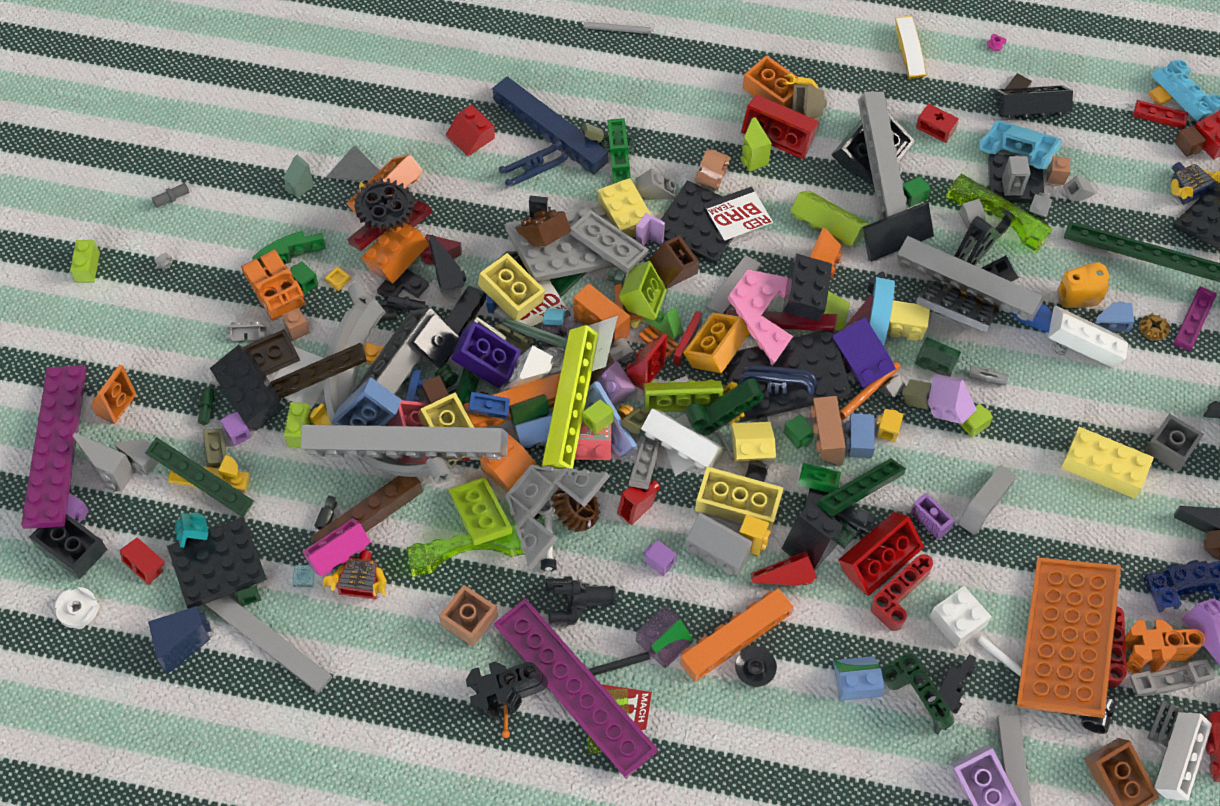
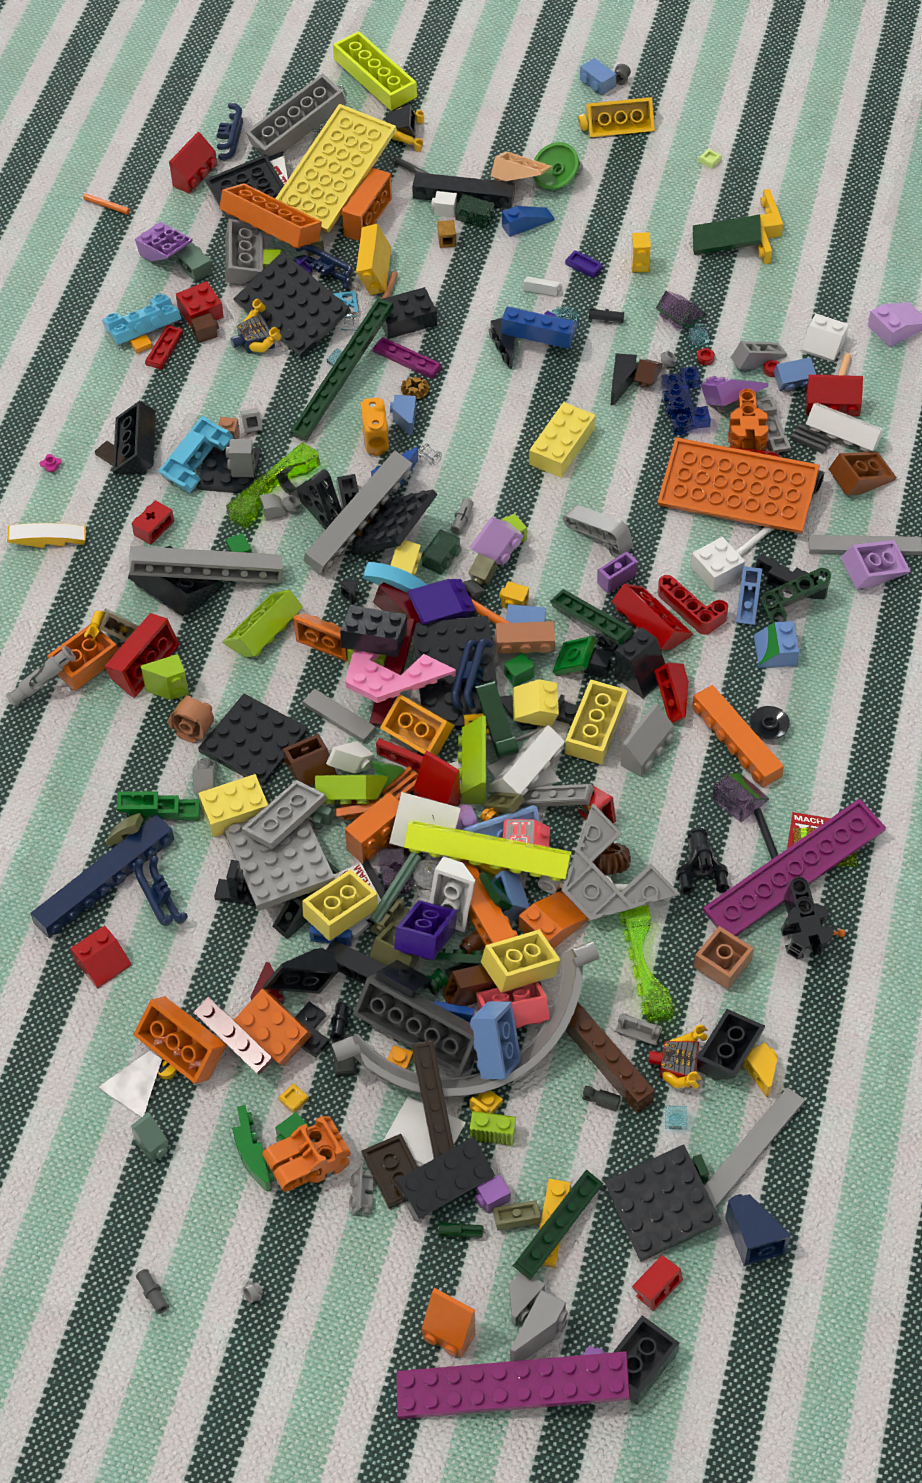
camera: 85 degrees left, 5 degrees down
(75, 597) = (715, 1362): white plate -> none
(85, 261) = (246, 1382): lime brick -> none
(191, 526) = (624, 1228): teal bracket -> none
(229, 467) = (546, 1193): yellow tile -> none
(295, 324) = (358, 1135): nougat brick -> none
(336, 547) = (653, 1072): dark pink brick -> none
(351, 652) = (761, 1066): none -> yellow slope
(369, 617) = (728, 1046): none -> black slope
(384, 205) = (204, 1029): black gear -> none
(398, 544) = (638, 1029): none -> light grey hinge
(404, 440) = (548, 990): light grey brick -> none
(480, 511) = (613, 941): lime plate -> none
(488, 405) = (497, 919): blue plate -> none
(544, 227) = (271, 865): reddish brown slope -> none
(554, 316) = (374, 871): medium azure tile -> none
(598, 416) = (510, 824): lime brick -> none
(650, 228) = (269, 780): lavender panel -> none
(660, 557) = (656, 793): medium lavender brick -> none
(679, 292) = (350, 757): none -> white slope
(738, 213) = (250, 702): sticker -> none
(744, 54) = (48, 670): none -> light grey piece
(757, 532) = (636, 708): yellow brick -> none
(890, 233) = (292, 565): black tile -> none
(926, 648) = (749, 595): none -> medium blue slope
(1040, 205) = (271, 449): light grey brick -> none
(1087, 337) = (430, 431): white slope -> none
(1174, 442) = (545, 388): dark grey brick -> none

